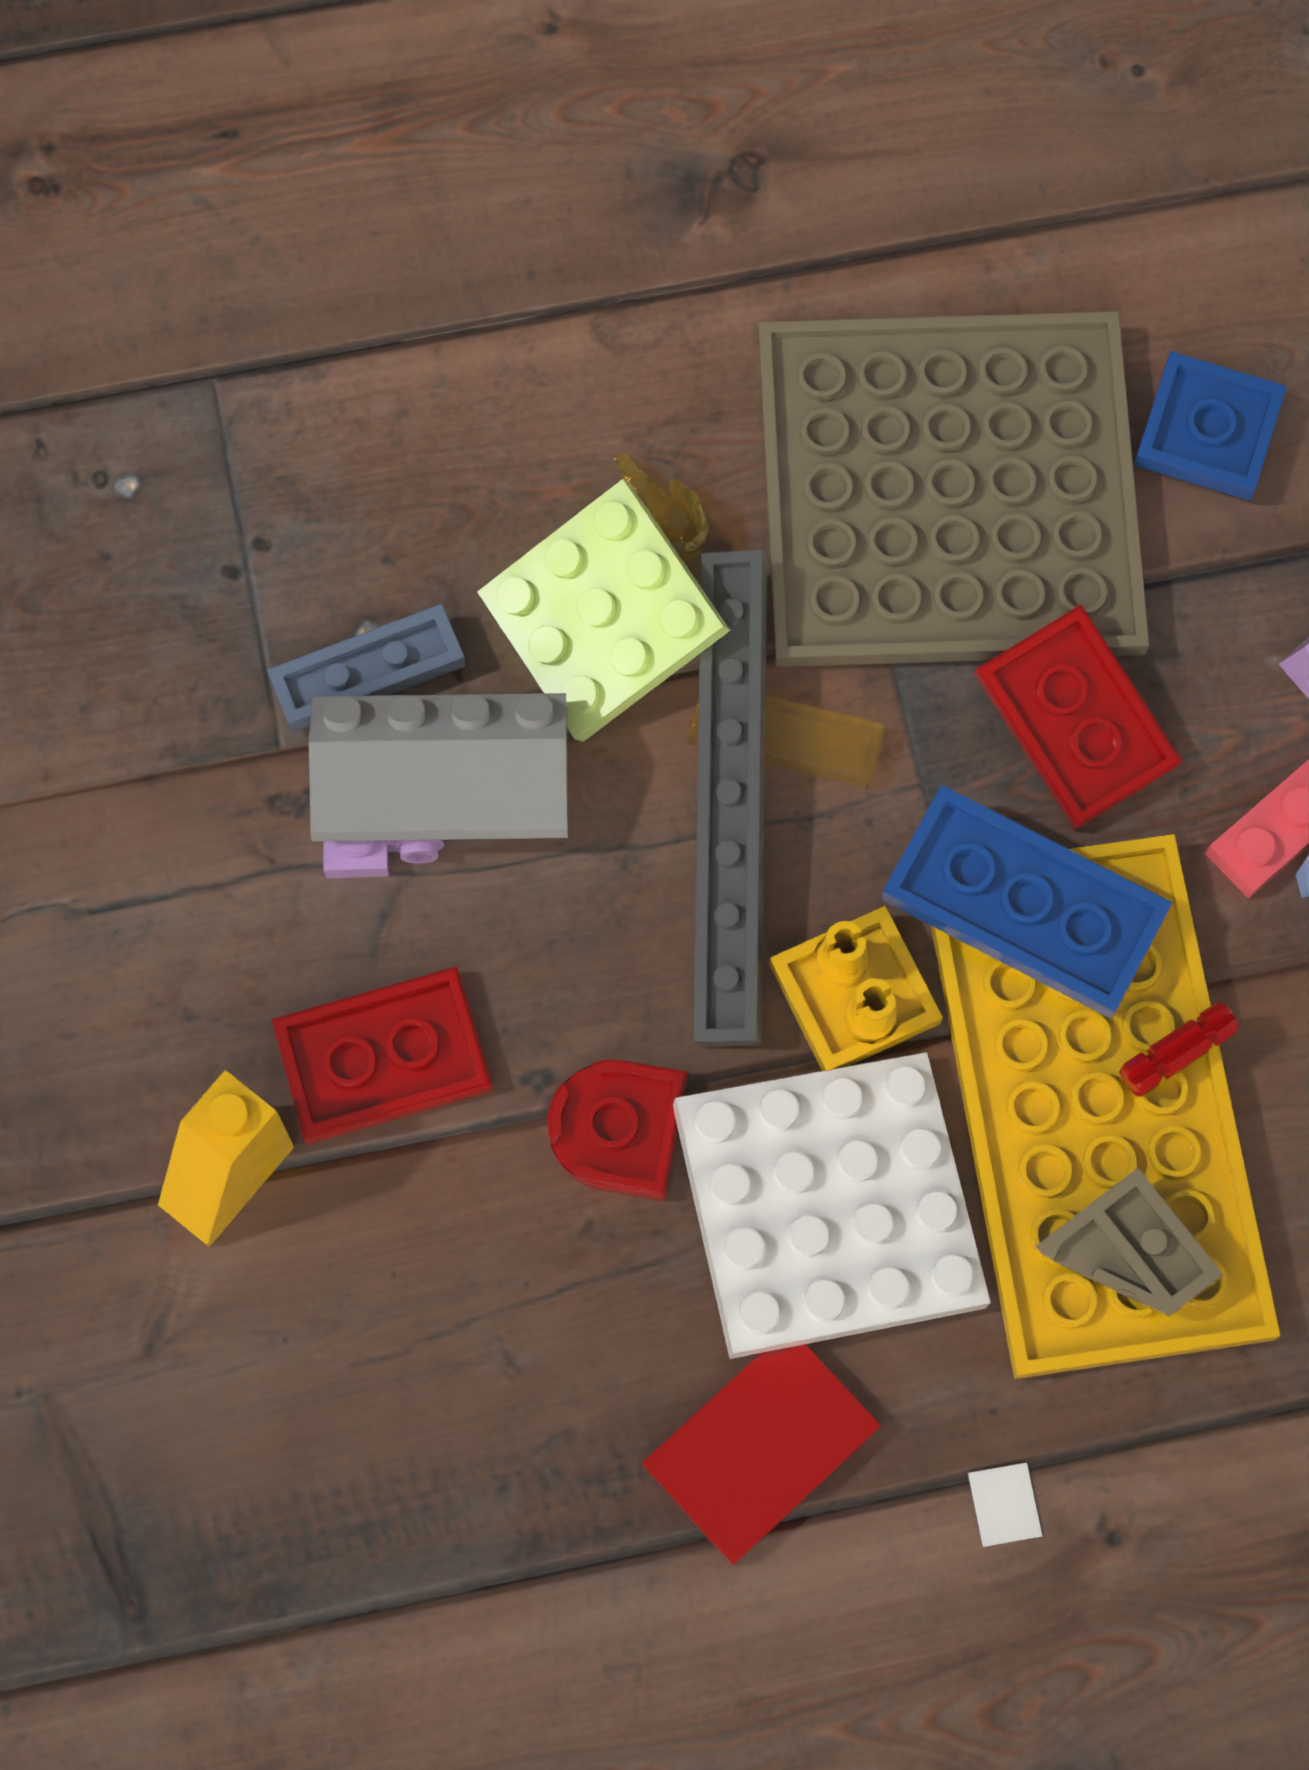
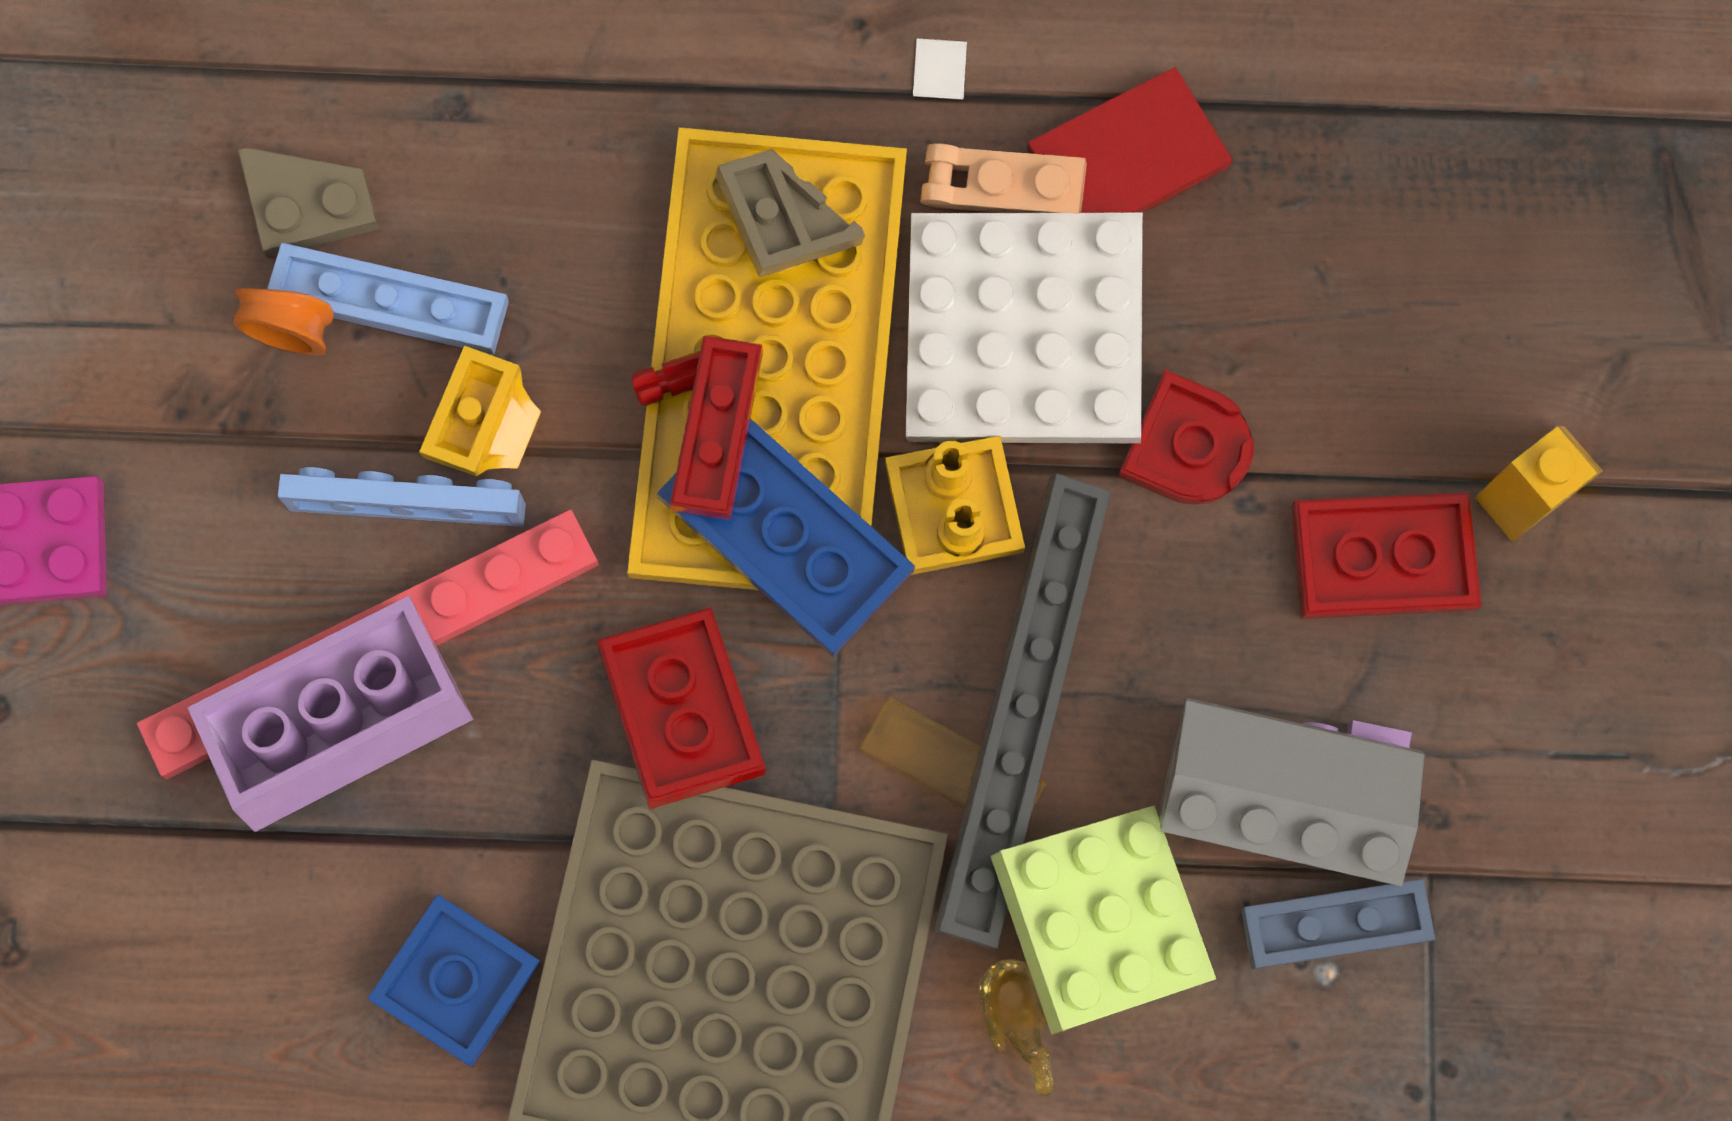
camera: 170 degrees left, 5 degrees up
(894, 1367) = (1004, 181): none -> light nougat plate
(1132, 980) = (716, 428): none -> red tile

